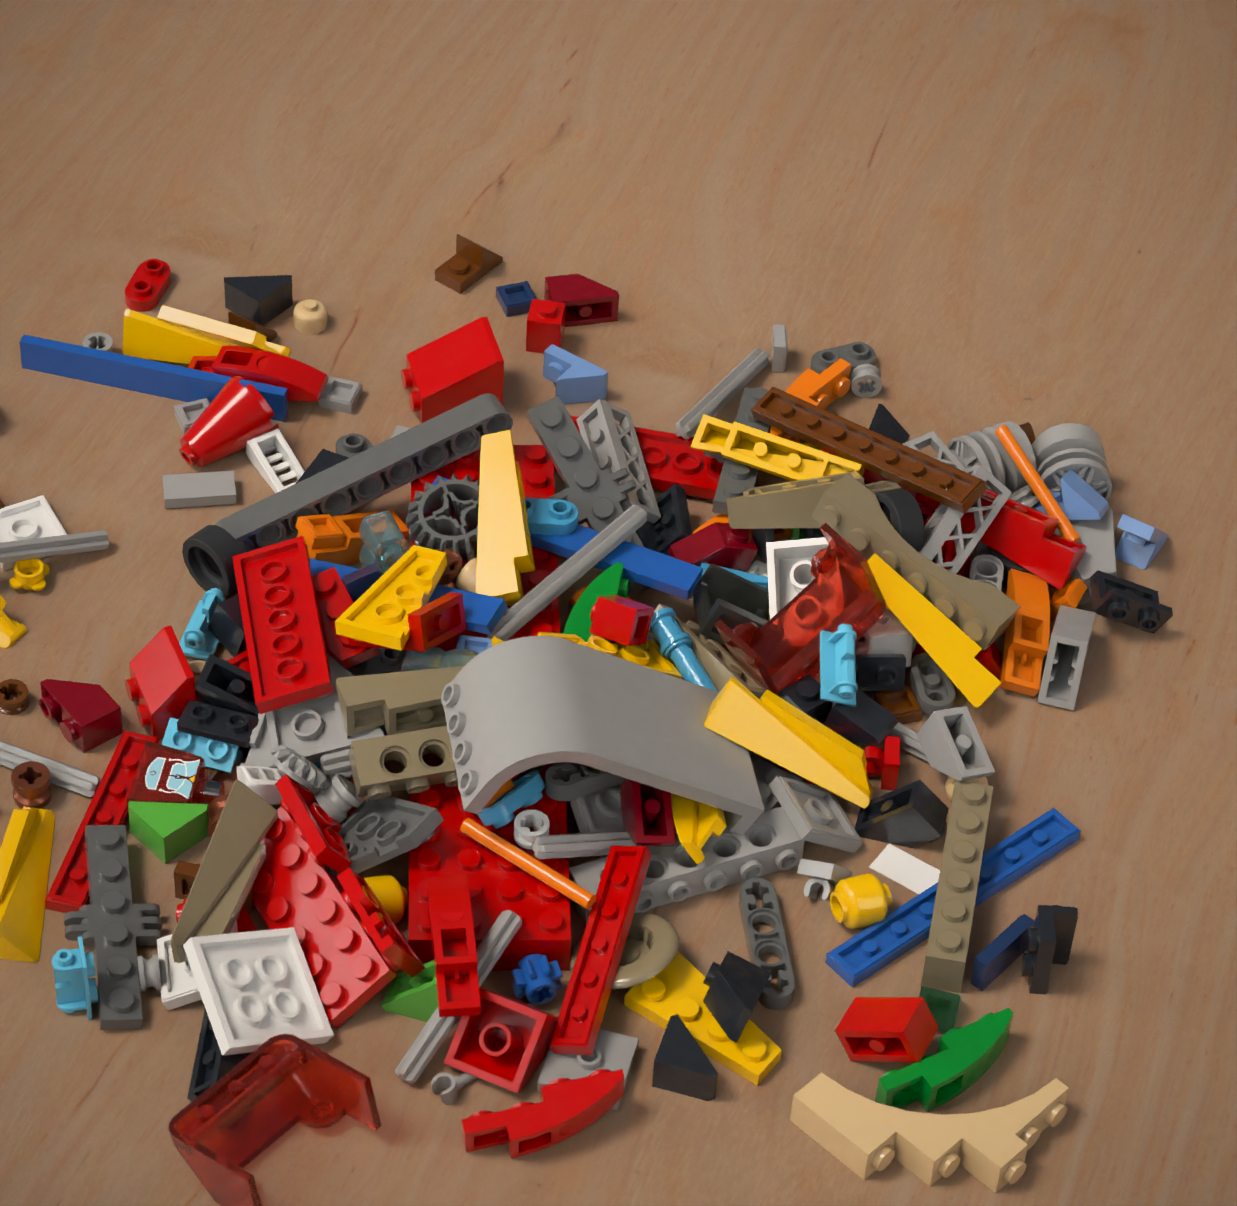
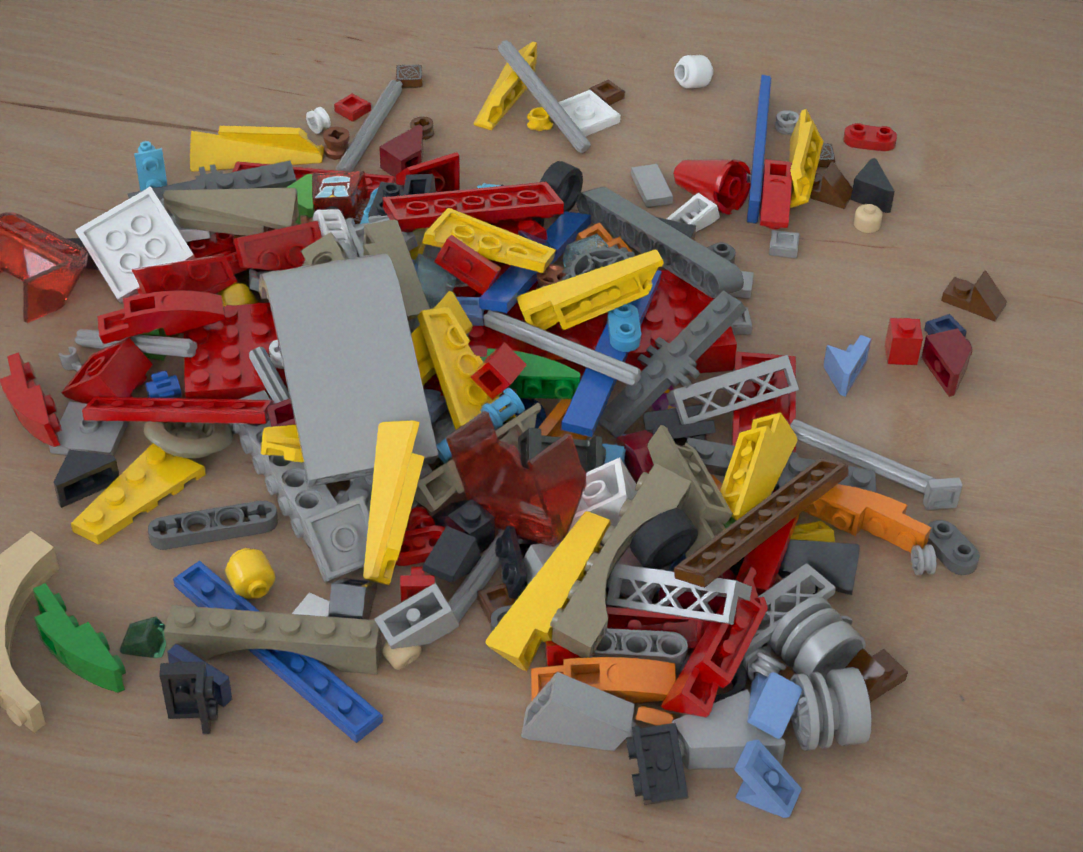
camera: 85 degrees right, 0 degrees up
(298, 767) = (330, 217): light grey gear -> none
(320, 531) = (603, 227): orange tile -> none
(454, 370) = (816, 295): red slope -> none
(528, 863) = (240, 363): orange bar -> none
(734, 992) = (133, 491): black slope -> none
(821, 875) = (279, 548): light grey tile -> none
(838, 665) = (480, 517): medium azure hinge -> none
(887, 1029) = (98, 587): red brick -> none
(1036, 483) = (771, 663): orange bar -> none

